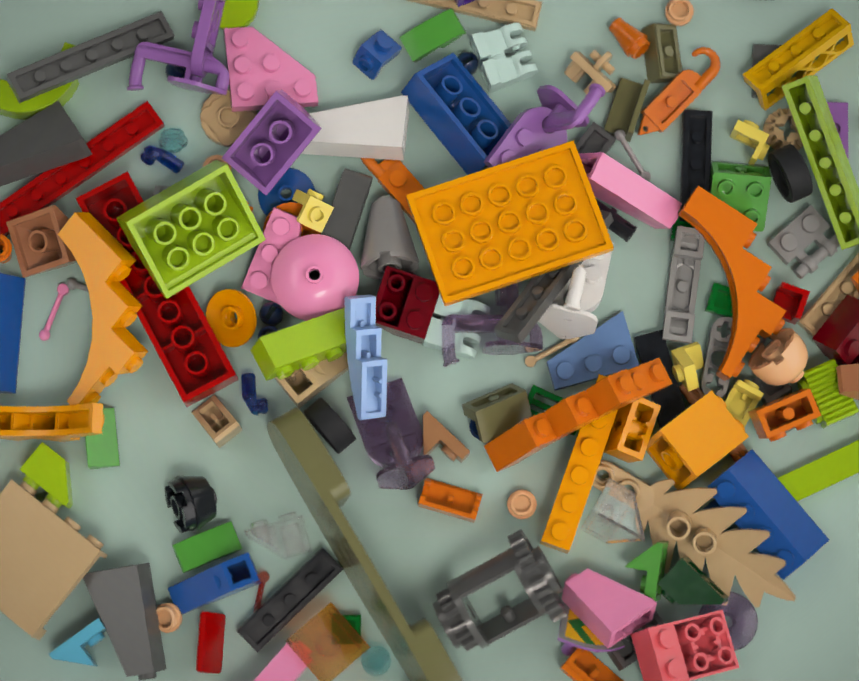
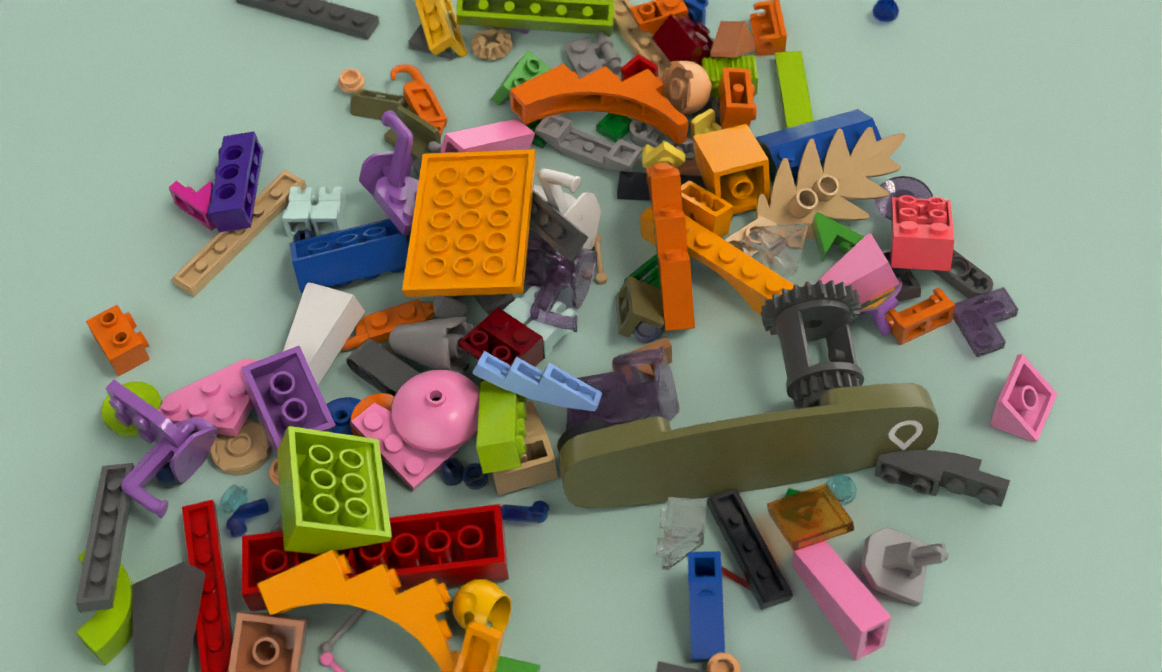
camera: 60 degrees left, 25 degrees down
(147, 393) = (482, 602): none -> yellow helmet
(191, 502) = (611, 599): black cone -> none
(207, 547) = (663, 606): bright green slope -> none
(210, 642) = (764, 639): red slope -> none
(217, 421) = (537, 550): tan slope -> none
(221, 317) = (434, 484): light orange dish -> none
(314, 211) = (371, 386): light yellow bracket -> none
(375, 54) = (255, 305): blue bracket -> none
(432, 34) = (263, 257): bright green slope -> none
(450, 500) = (706, 377): orange hinge -> none
(521, 504) = (733, 322): light nougat plate -> none
(581, 66) = (363, 147): tan hips -> none
(594, 354) = (620, 229): medium blue wing -> none
(629, 38) = (353, 119): orange cone -> none
(690, 586) = (862, 208): dark green slope -> none
(695, 153) = (478, 105): black tile -> none
(749, 134) = (486, 63): light yellow bracket -> none
(790, 173) = (531, 27): black tyre -> none

